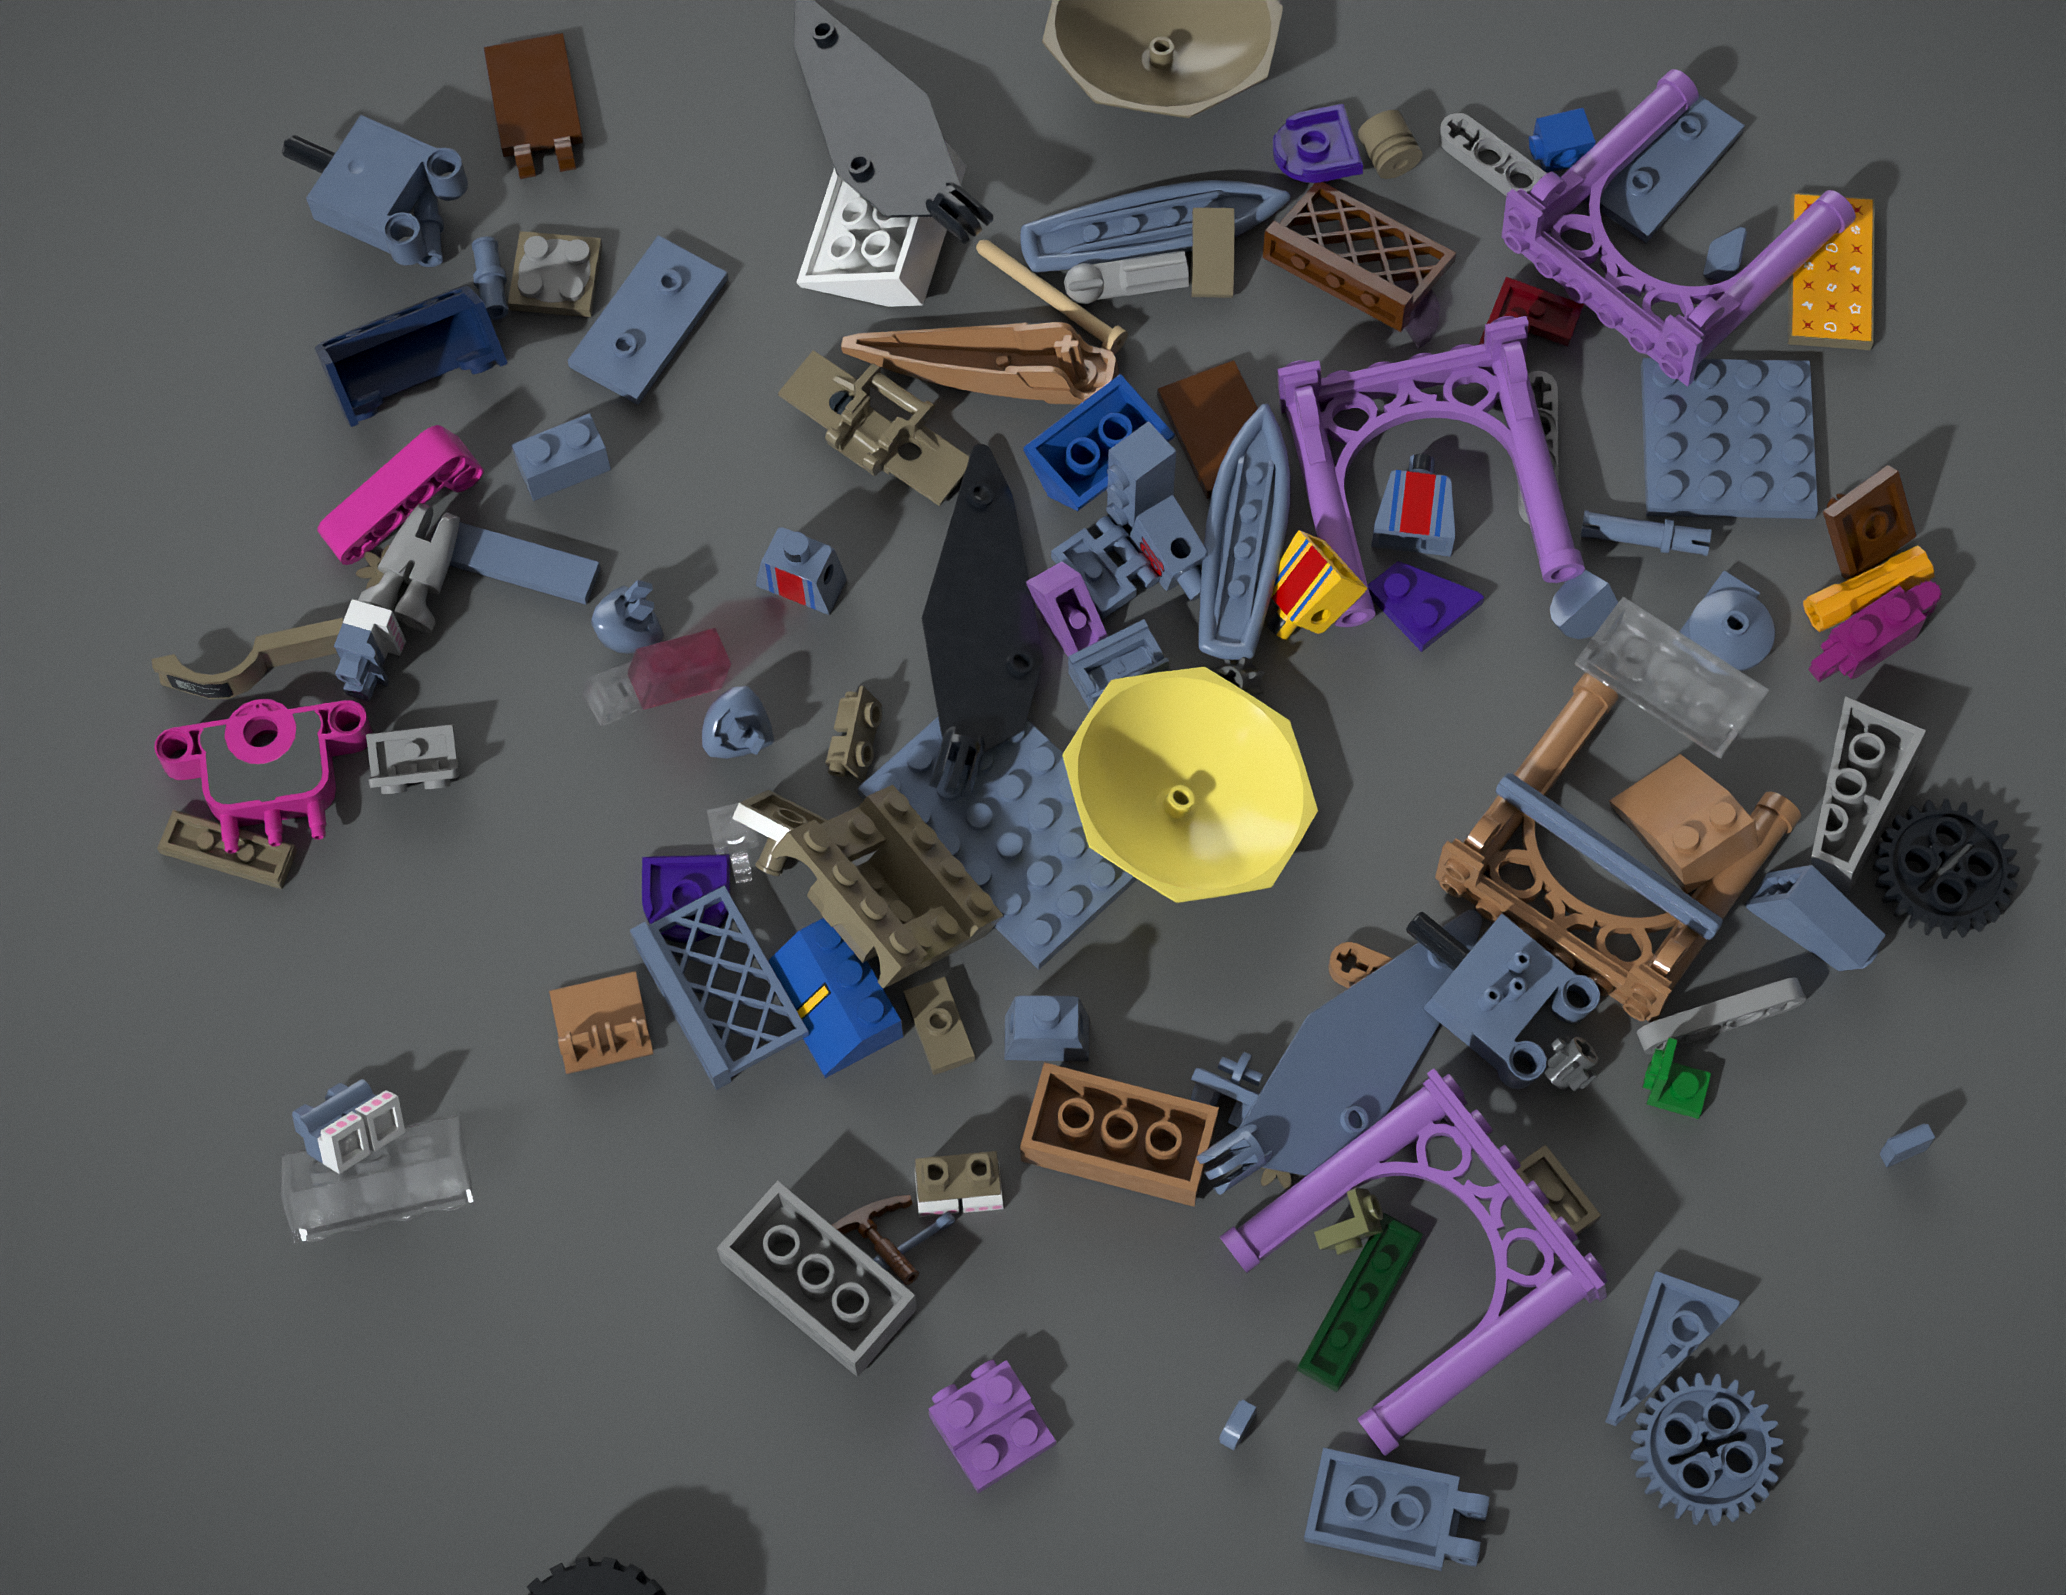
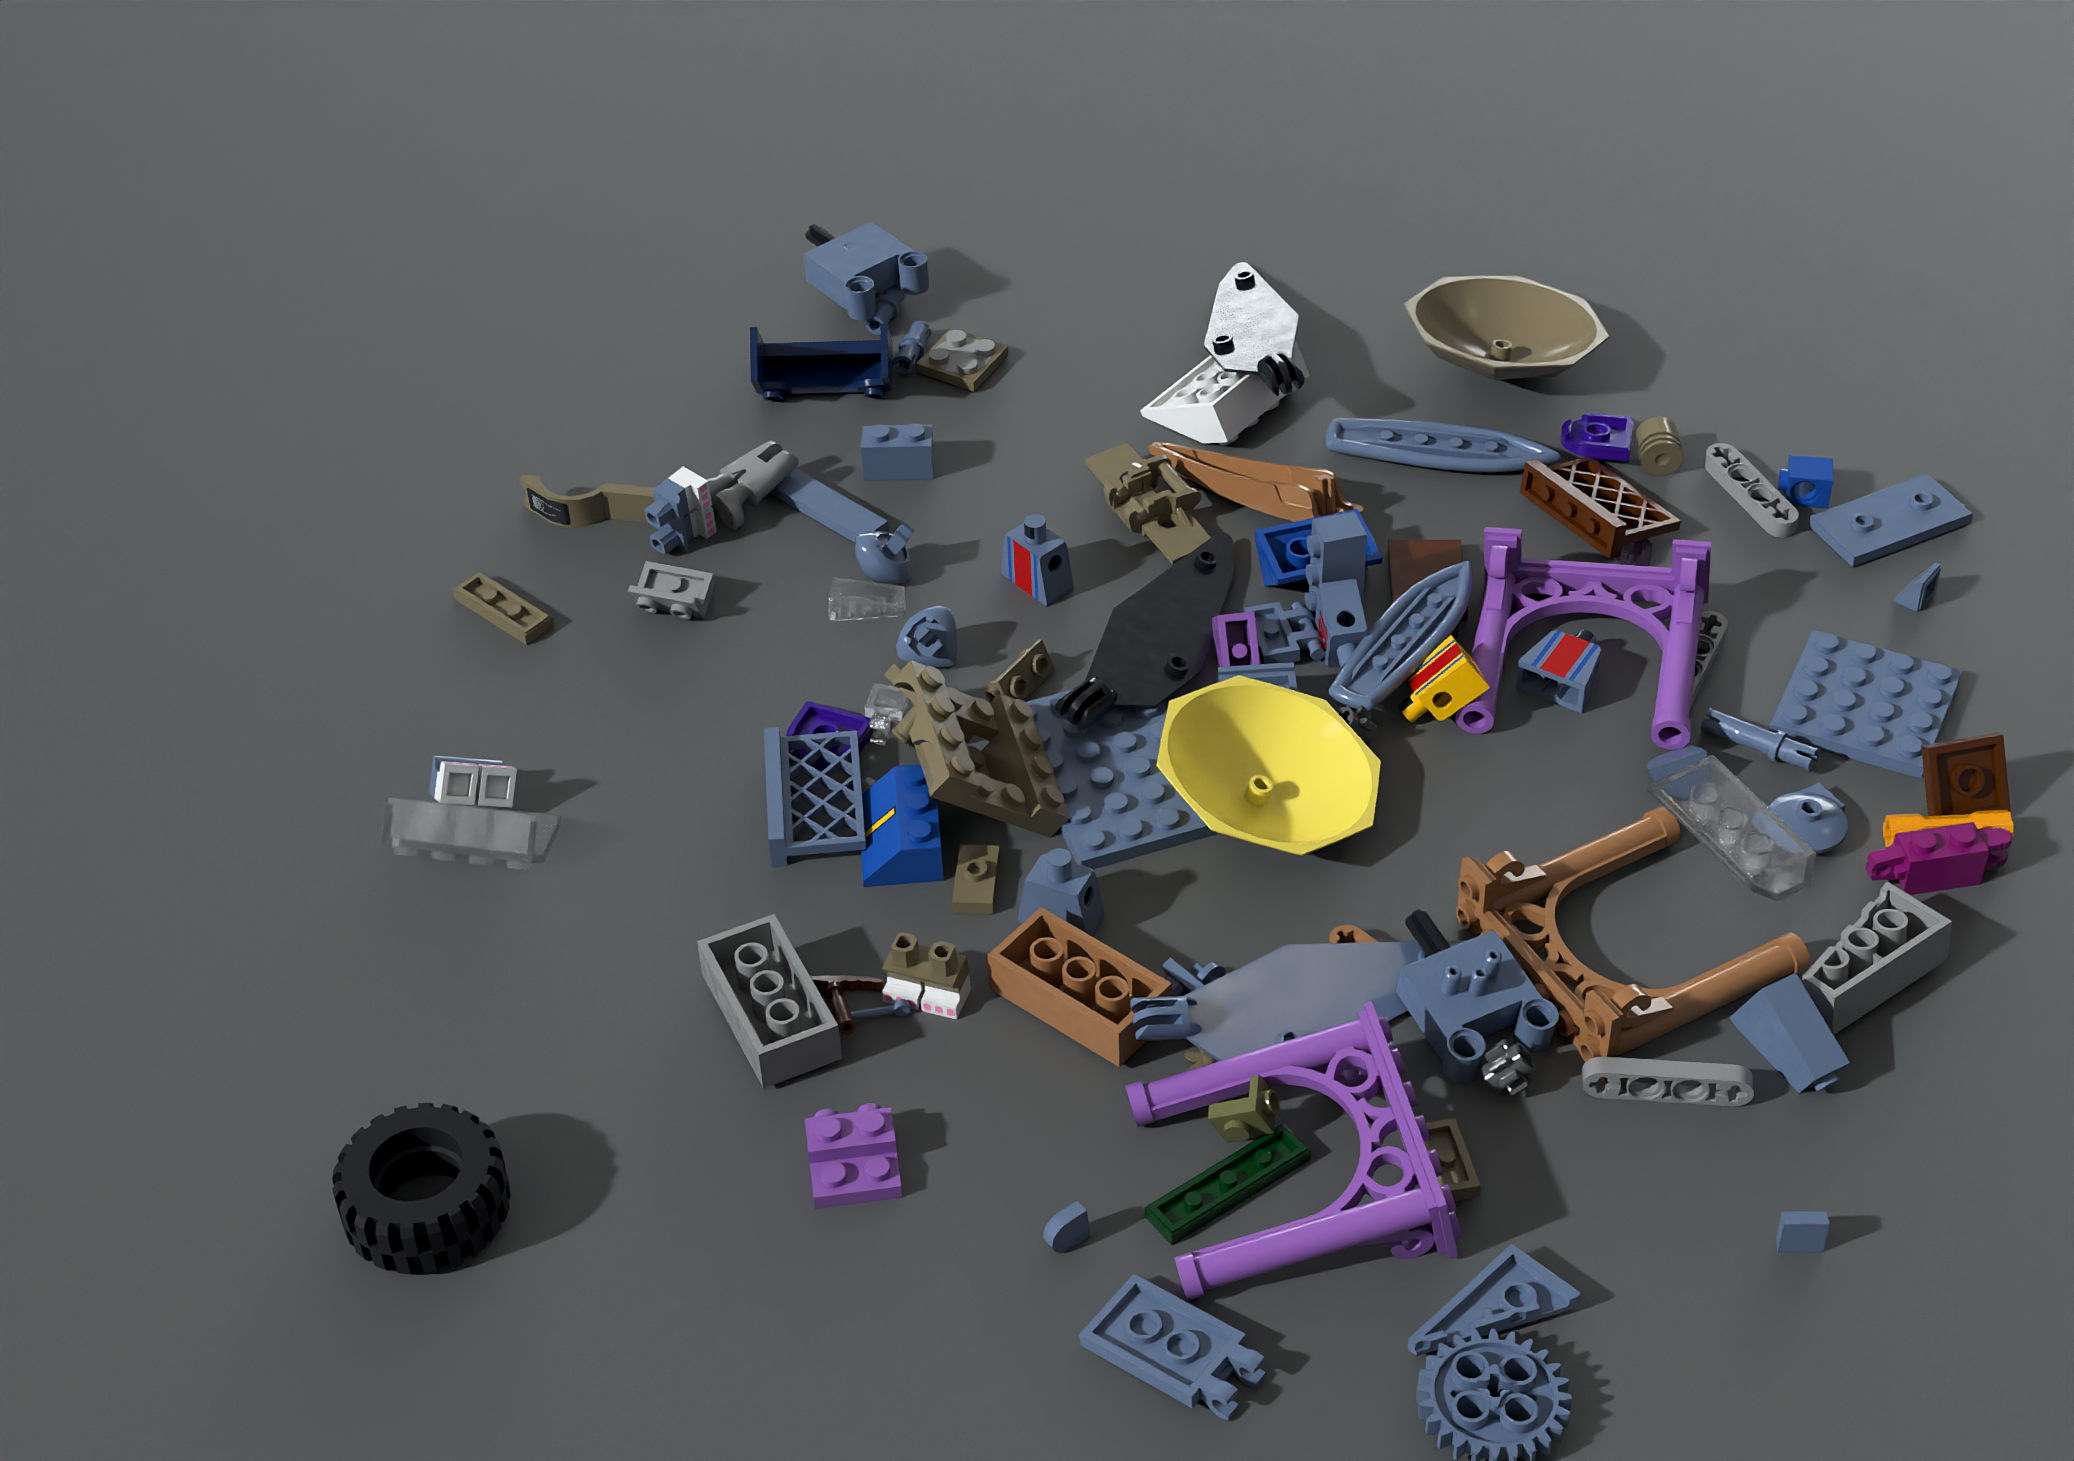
camera: 25 degrees right, 25 degrees down
(268, 782) = (569, 571): dark pink piece -> none
(392, 493) = (785, 422): dark pink beam -> none
(534, 100) = (1008, 266): reddish brown tile -> none
(601, 1022) = (707, 792): medium nougat hinge -> none
(647, 320) = (1014, 401): sand blue plate -> none
(679, 668) = (903, 587): clear pink brick -> none
(1112, 339) = (1369, 501): tan bar -> none
(1126, 277) = (1401, 469): light grey piece -> none
(1212, 252) = (1477, 469): dark tan slope -> none
(1422, 602) = (1540, 732): dark purple wing -> none
(1546, 312) = (1737, 579): dark red plate -> none
(1609, 856) = (1615, 927): sand blue axle -> none
(1675, 1085) = (1593, 1117): green bracket -> none
(1679, 341) = (1847, 603): medium lavender arch -> none
(1687, 822) = (1702, 934): medium nougat slope -> none
(1835, 287) = (2009, 624): light orange tile -> none
(1975, 895) = (1934, 1042): black gear -> none

